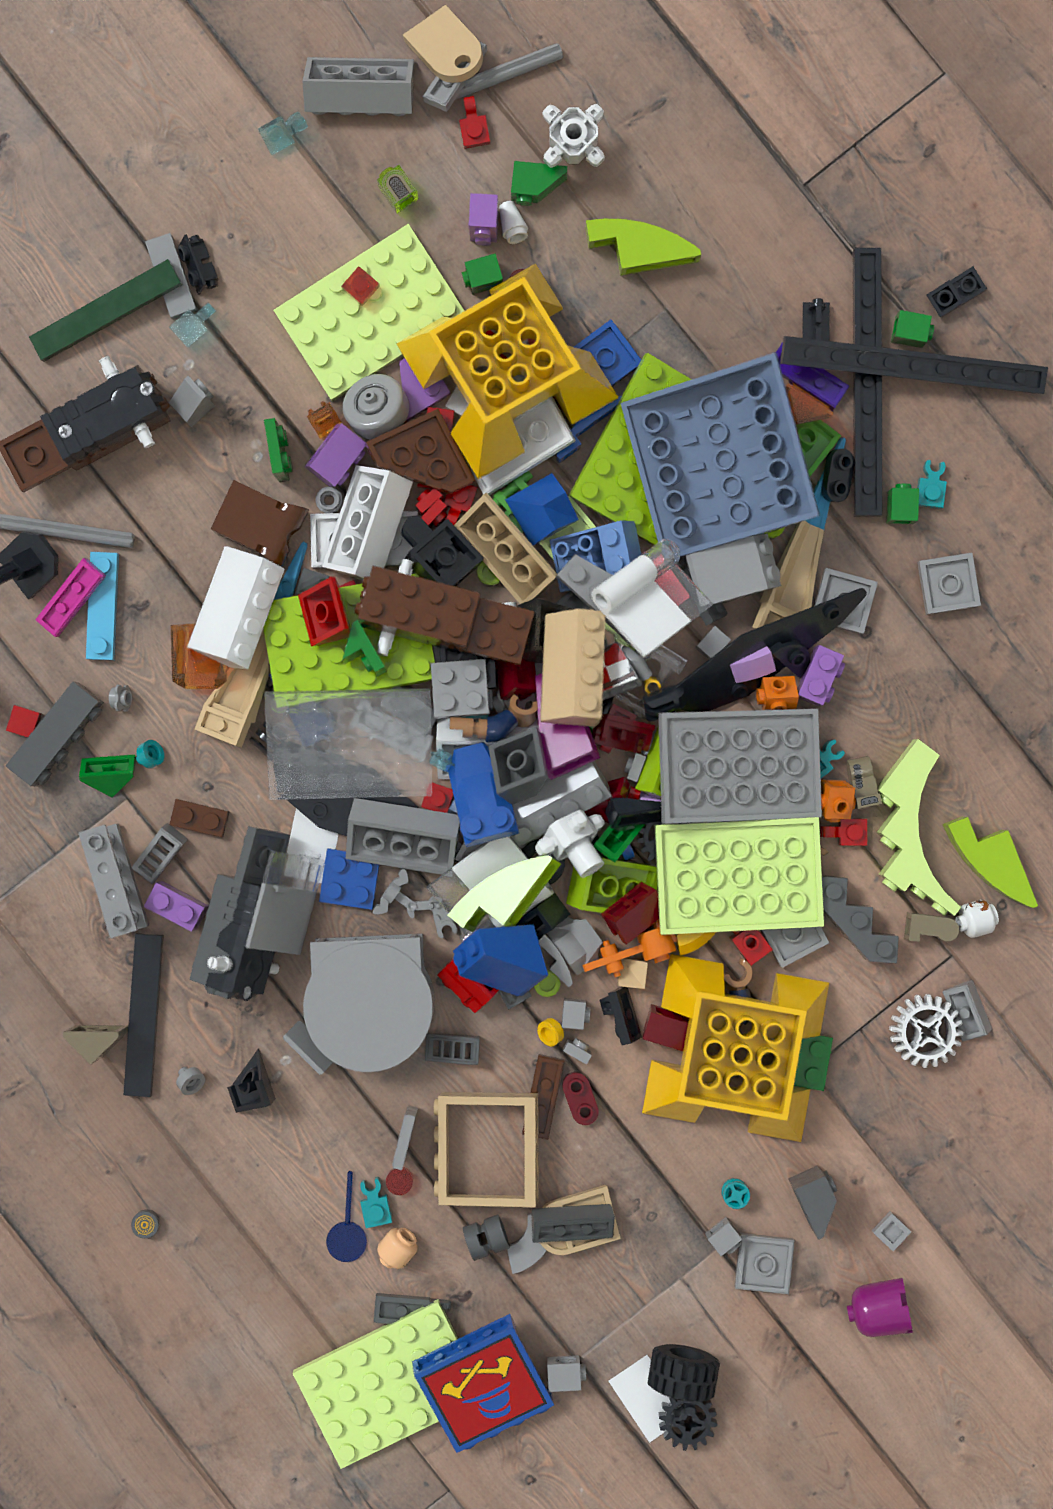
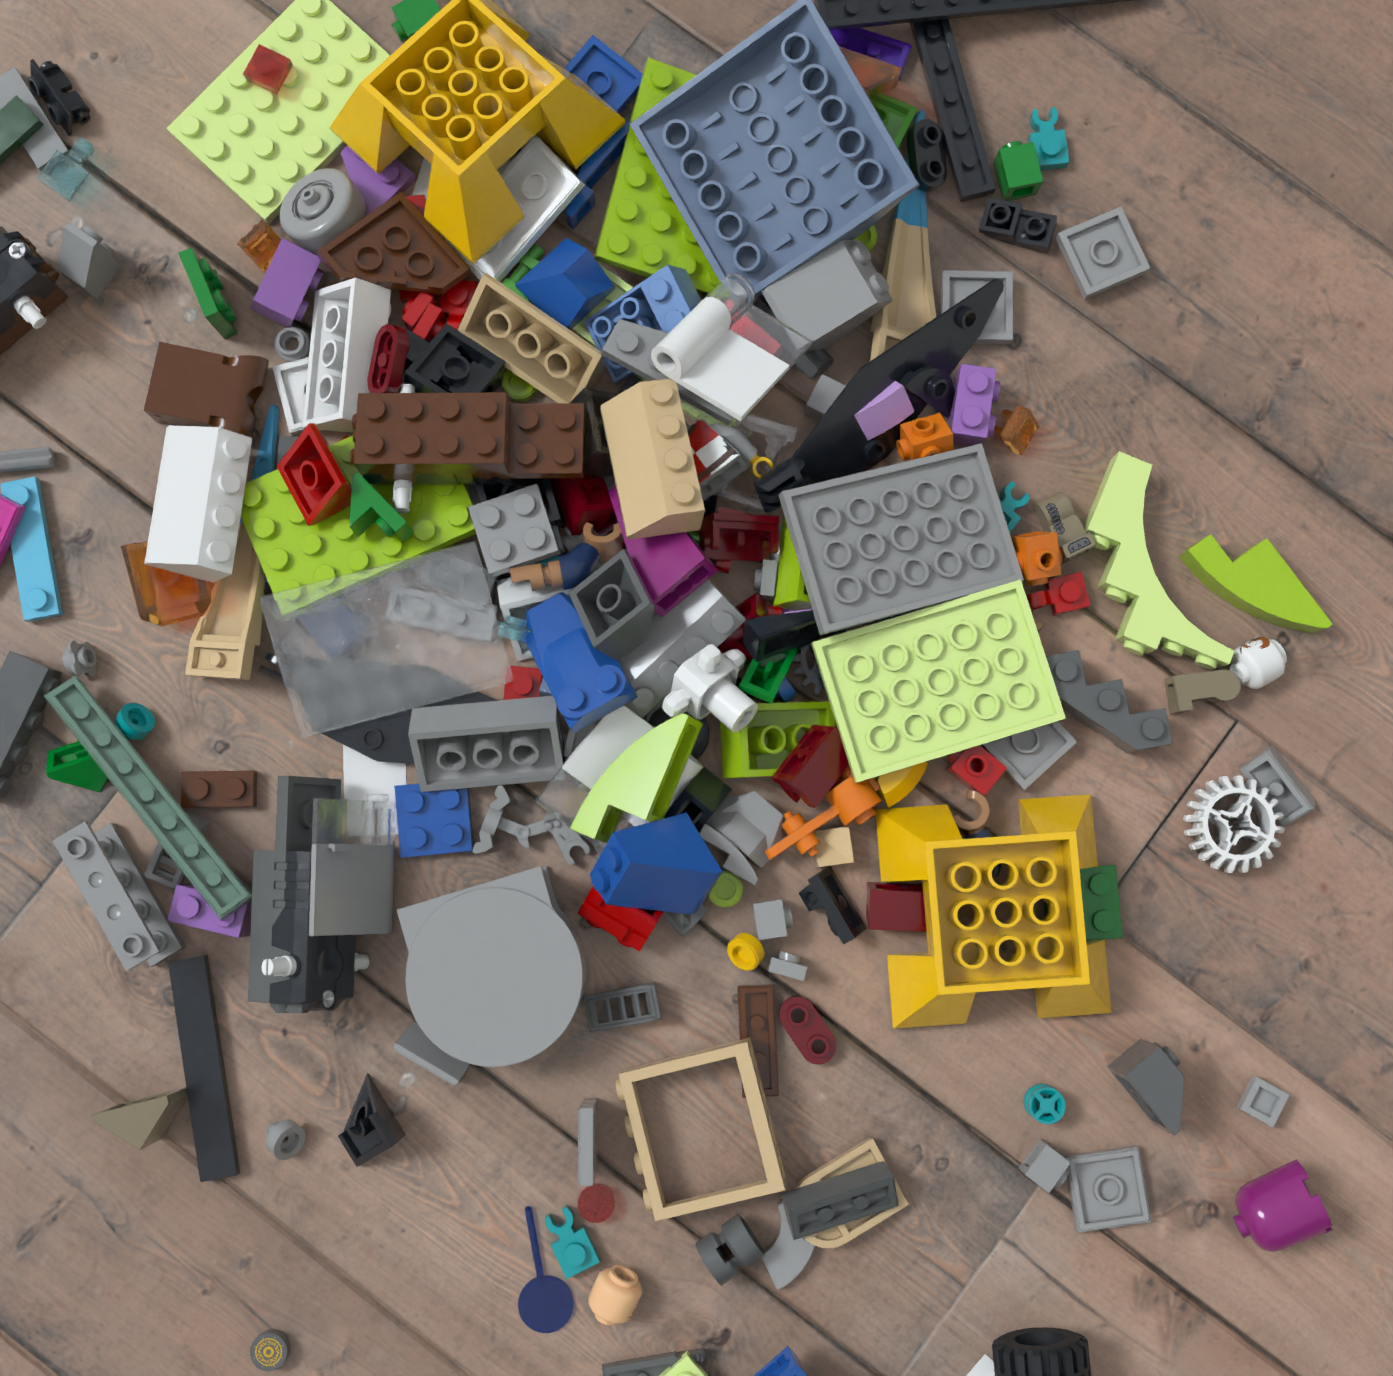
camera: 15 degrees left, 5 degrees down
(149, 814) = (148, 798): none -> sand green tile
(398, 539) = (388, 359): none -> dark red plate
(849, 702) = (1018, 430): none -> clear orange tile
(892, 546) = (1016, 226): none -> black slope

